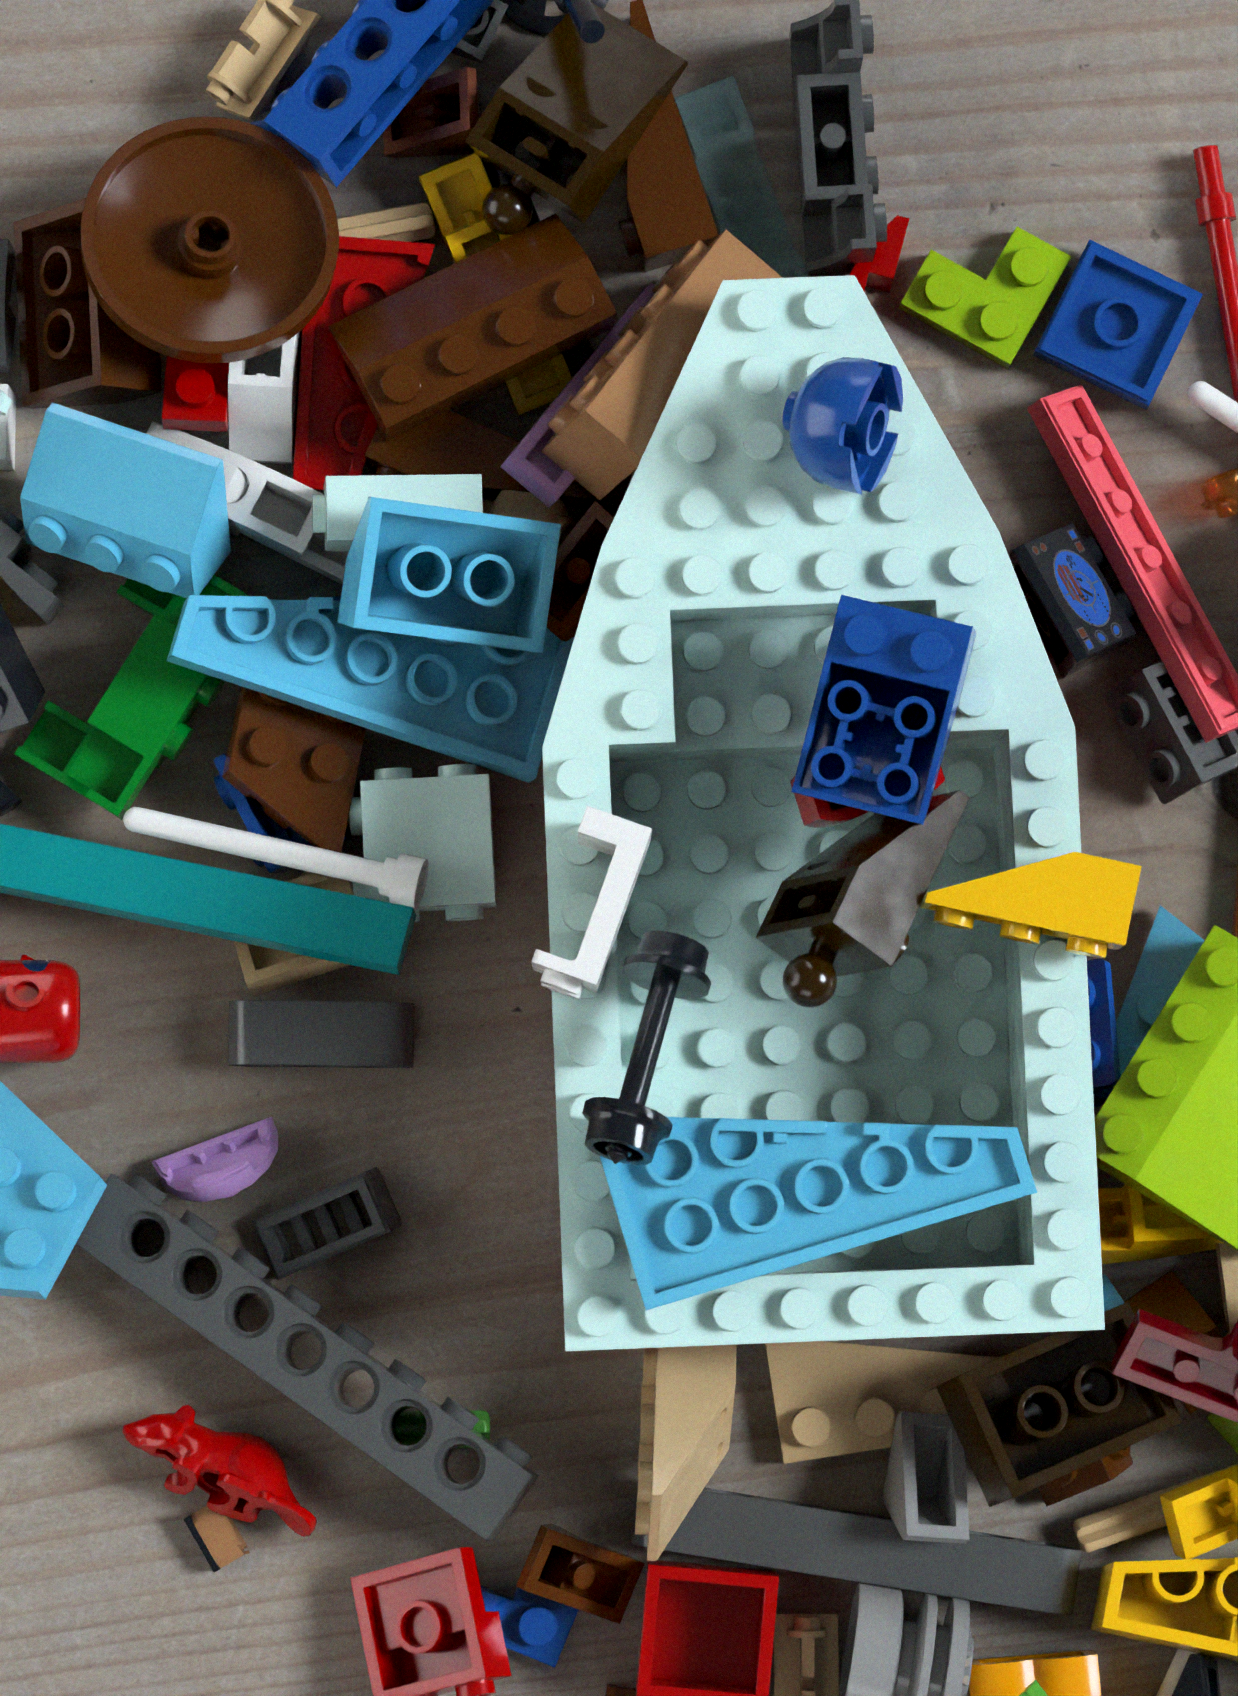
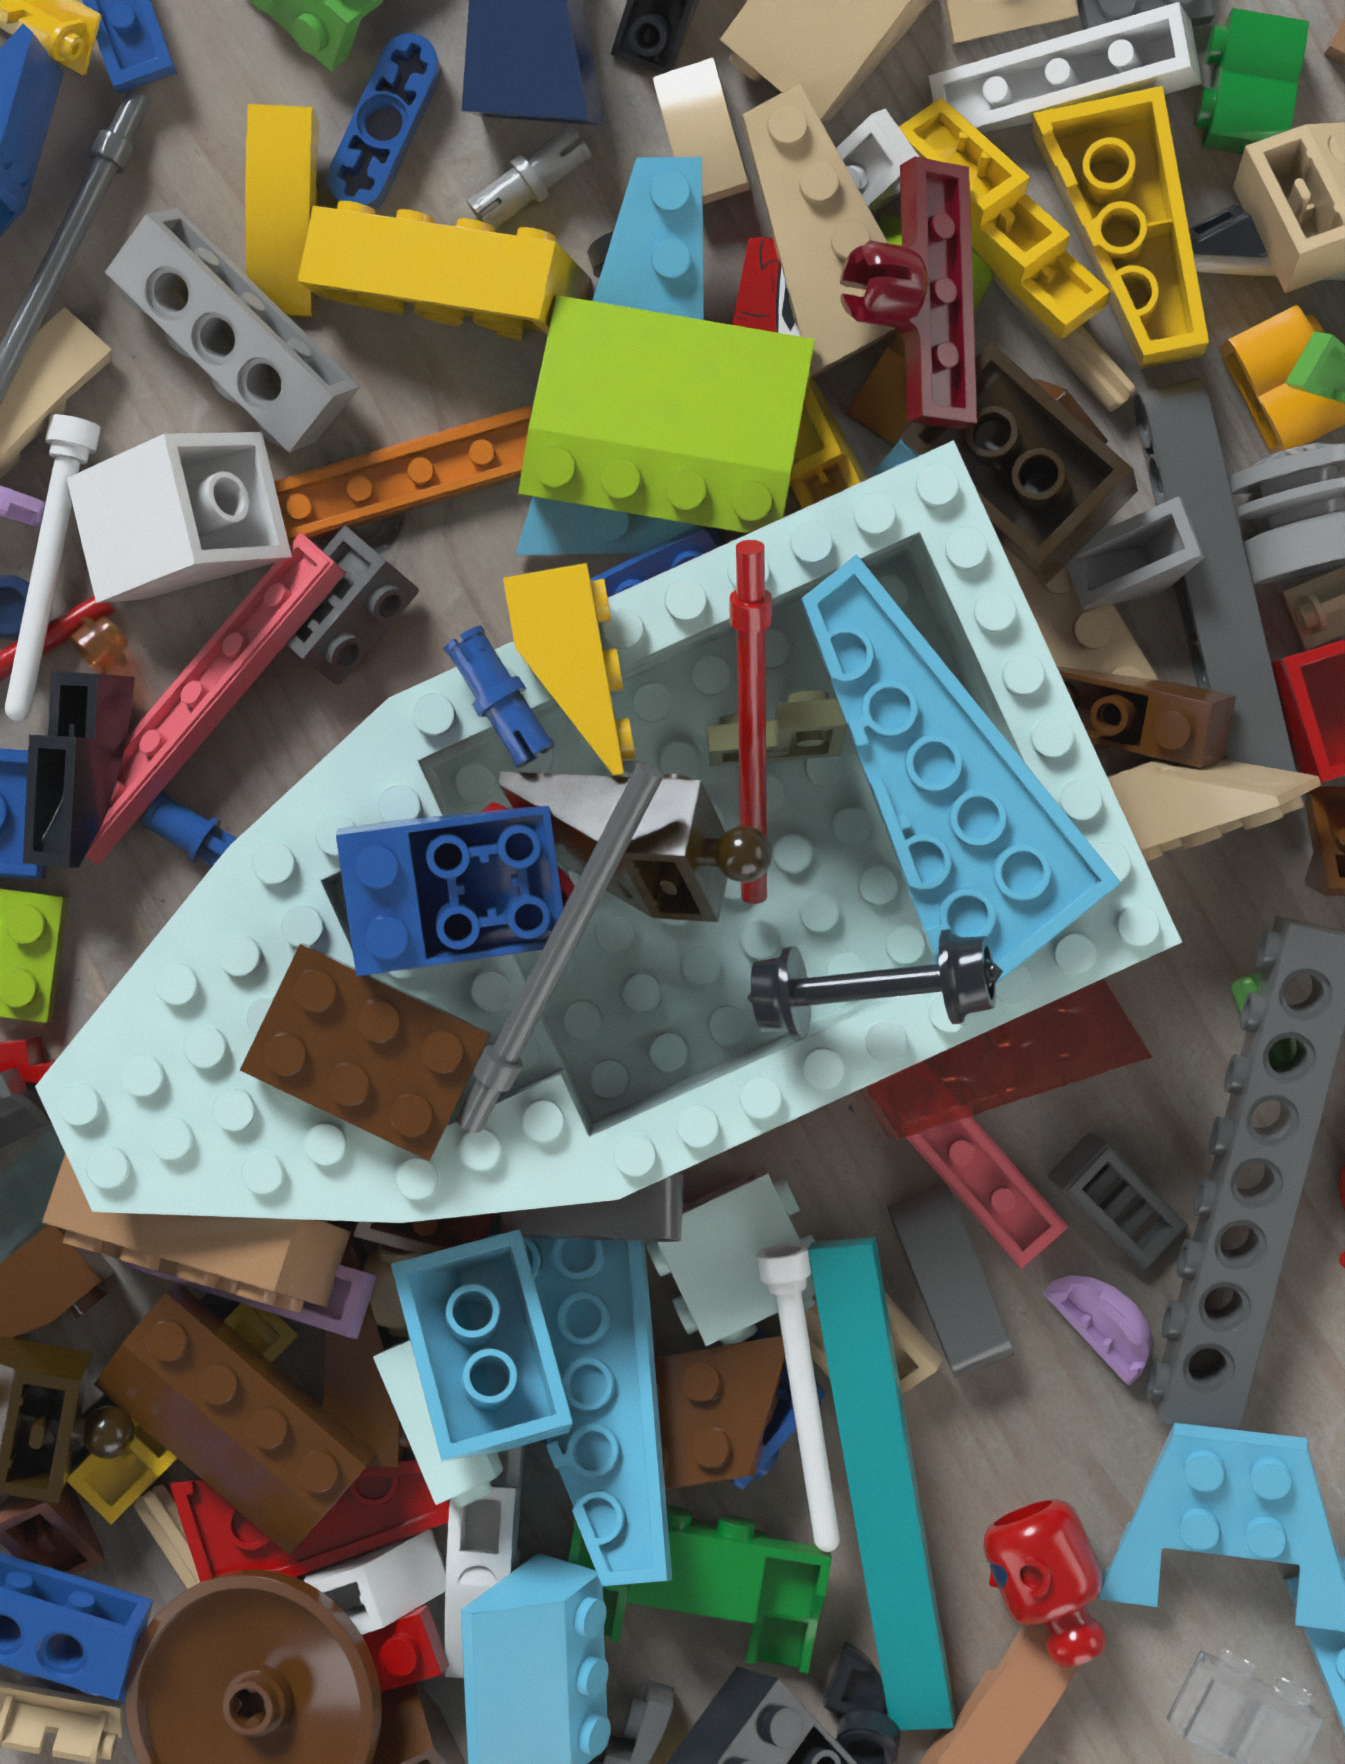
camera: 110 degrees left, 5 degrees up
(433, 1094) = (991, 1187): none -> coral tile
(511, 1168) = (1017, 1060): none -> clear red wedge
(513, 761) = (645, 1215): none -> dark grey beam
(628, 846) = (759, 1076): white panel -> none
(710, 691) = (502, 1061): none -> dark grey bar
(767, 577) = (365, 1051): none -> reddish brown plate
(780, 1422) = (1152, 716): none -> reddish brown slope
(842, 422) = (184, 1042): blue cylinder -> none
(896, 1086) = (802, 729): none -> olive plate
(1018, 1071) = (751, 615): none -> red bar
(1027, 501) = (187, 830): none -> blue axle
(1037, 822) = (499, 696): none -> blue pin
(1071, 598) = (261, 752): black slope -> none
(1126, 424) = (75, 765): none -> black slope

